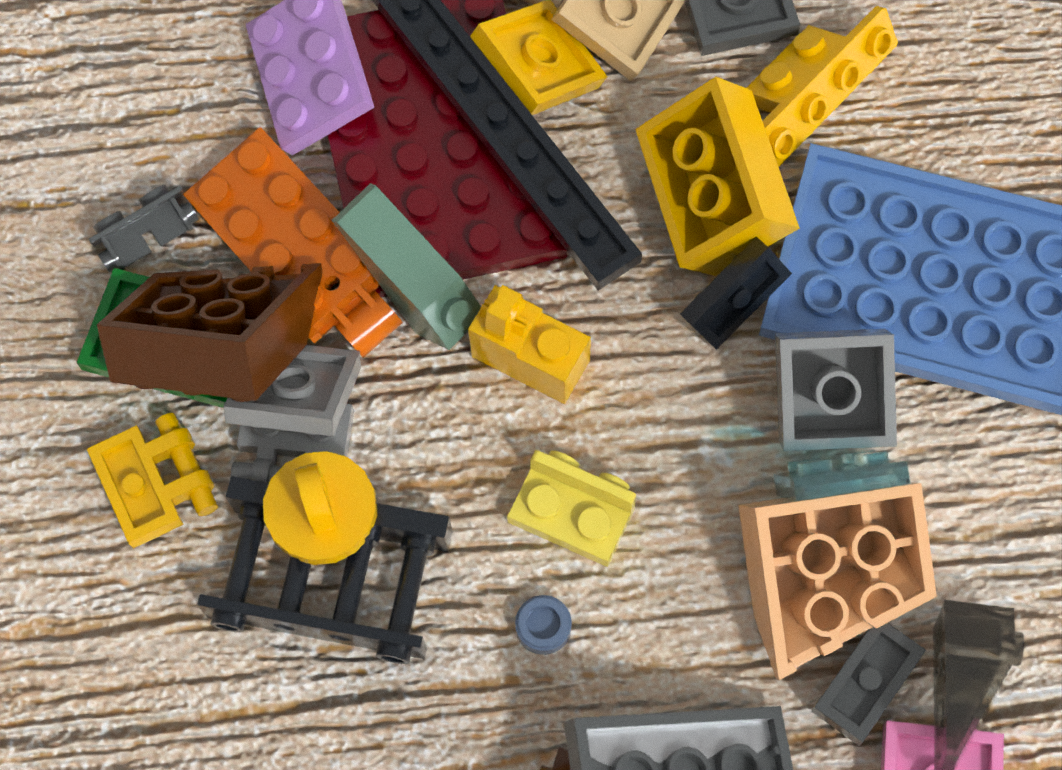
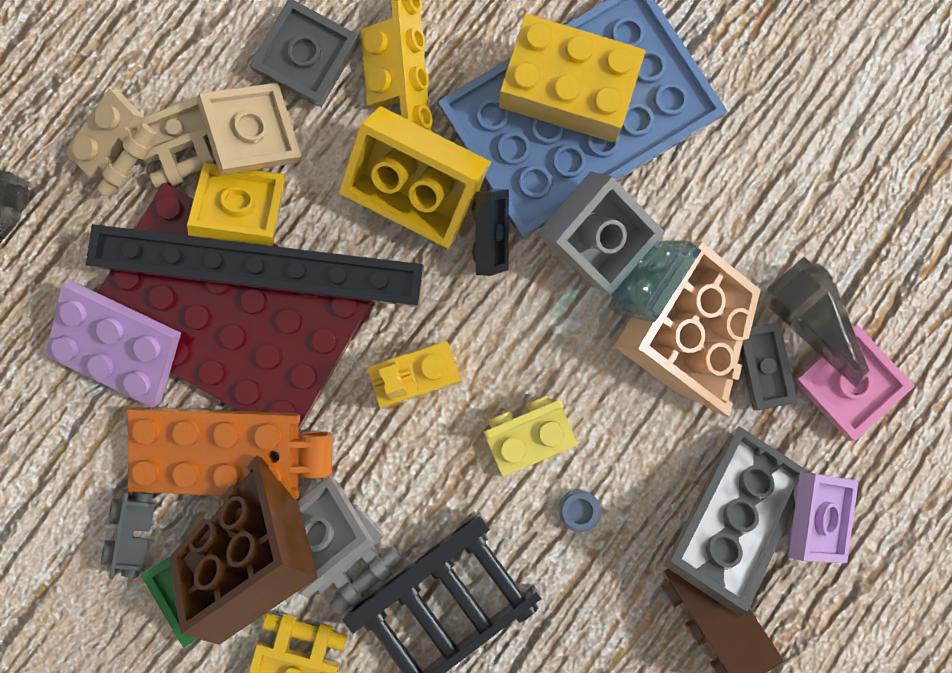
camera: 50 degrees left, 15 degrees up
(320, 507) = (410, 587): yellow tile -> none
(408, 268) = (308, 408): sand green slope -> none
(953, 232) = (571, 78): none -> yellow brick

